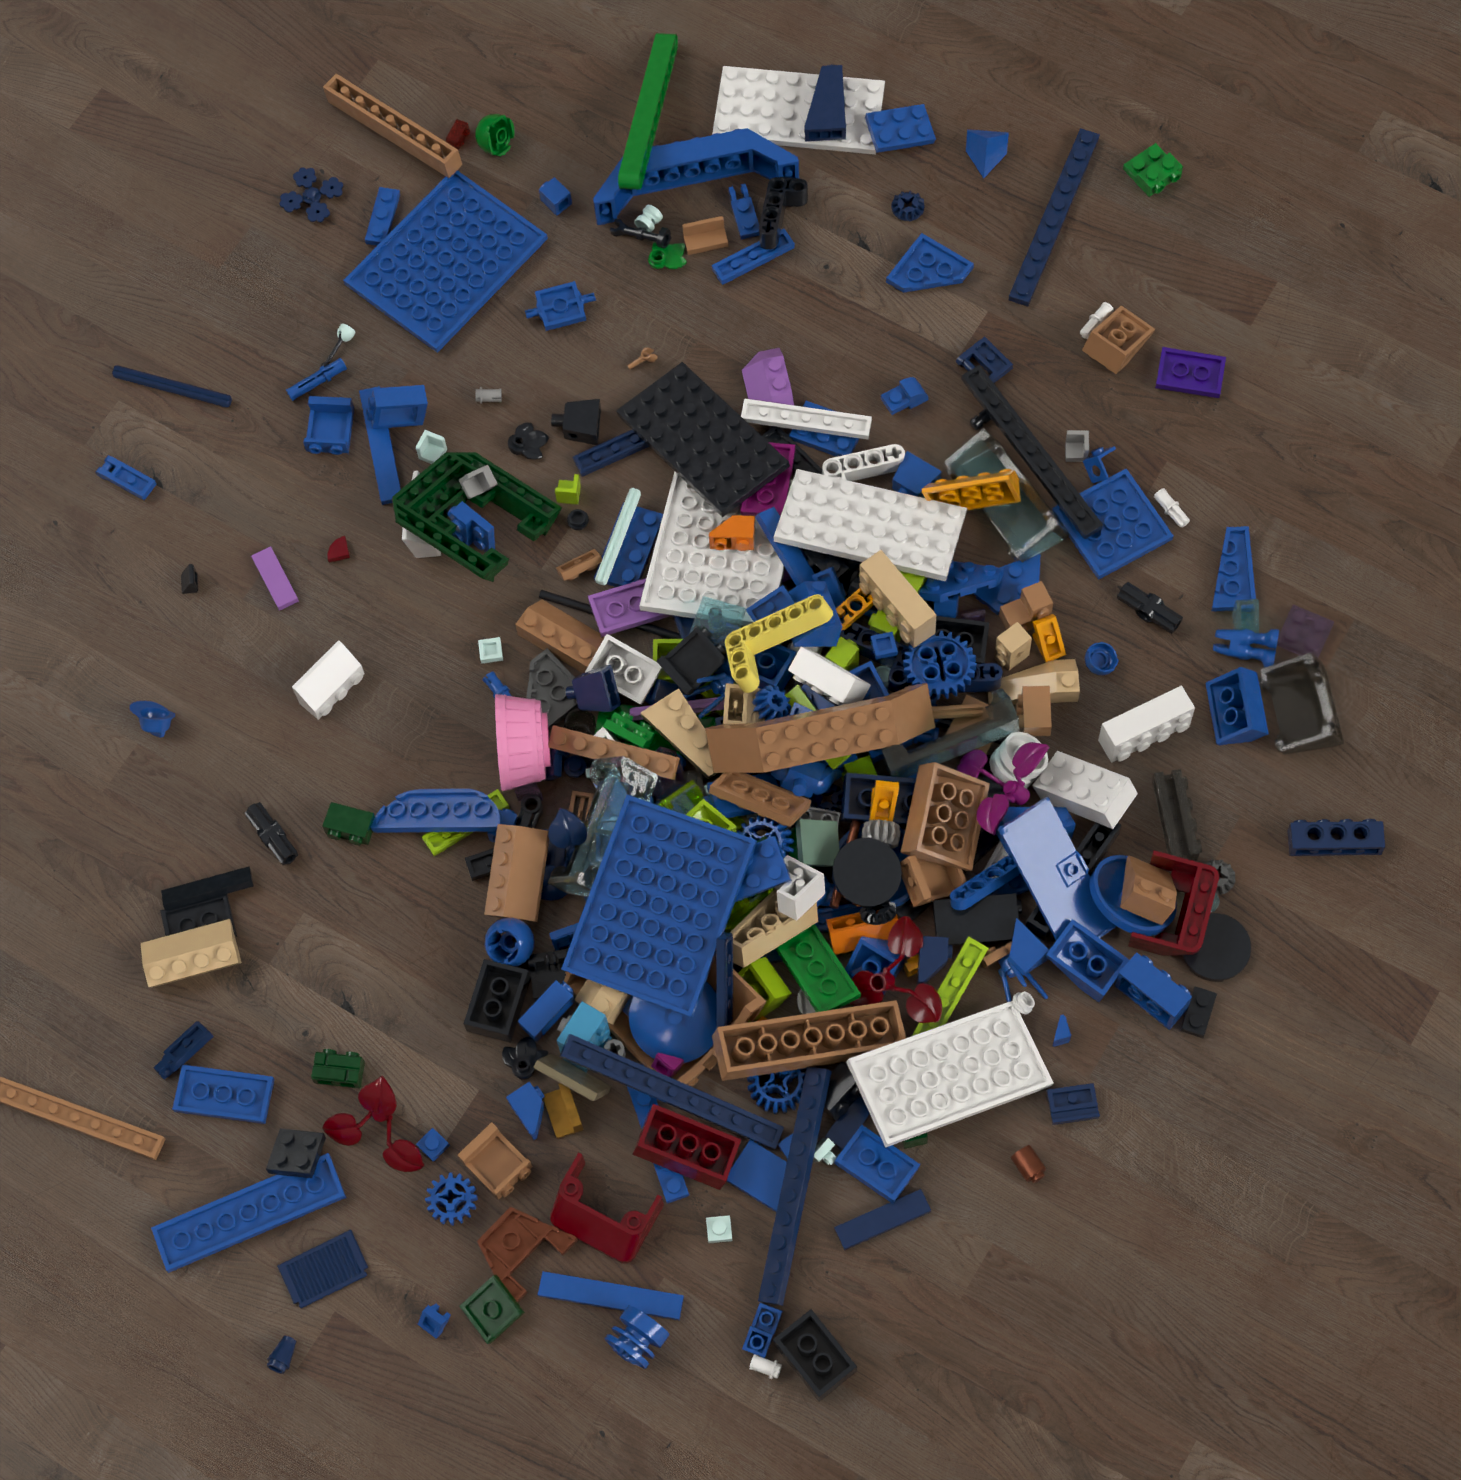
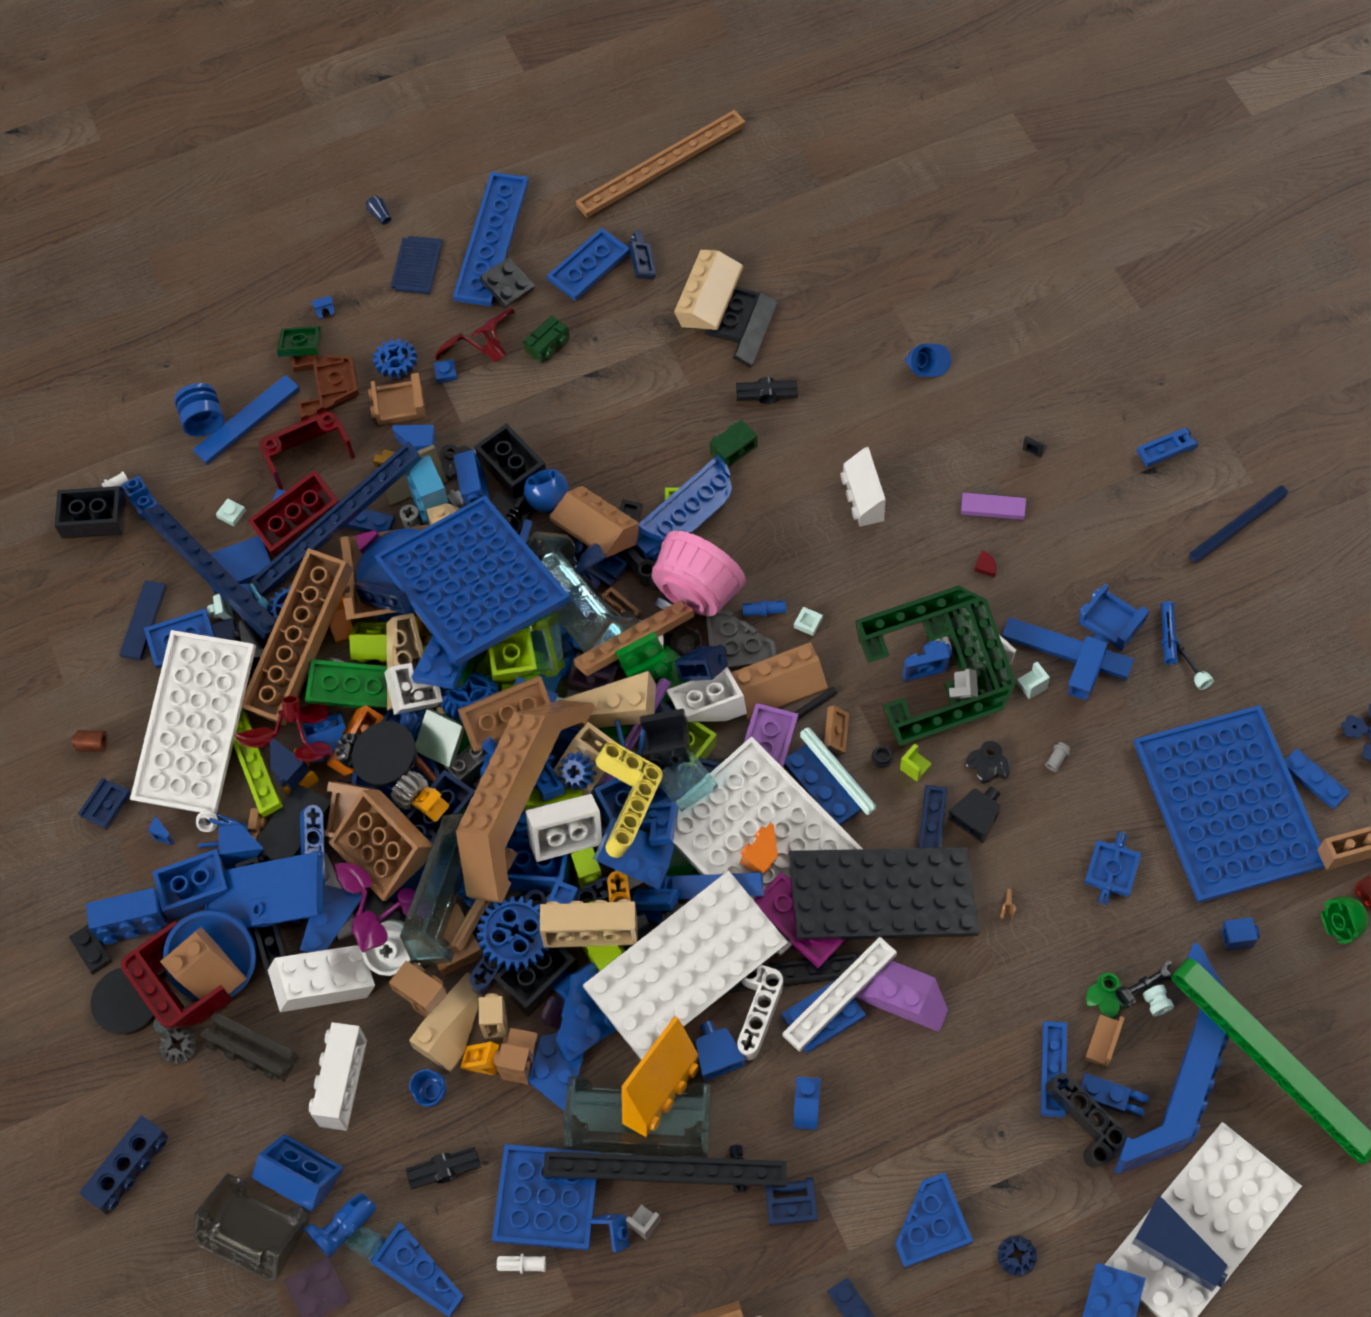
camera: 125 degrees right, 5 degrees down
(790, 1123) = (261, 600): none -> dark azure hand

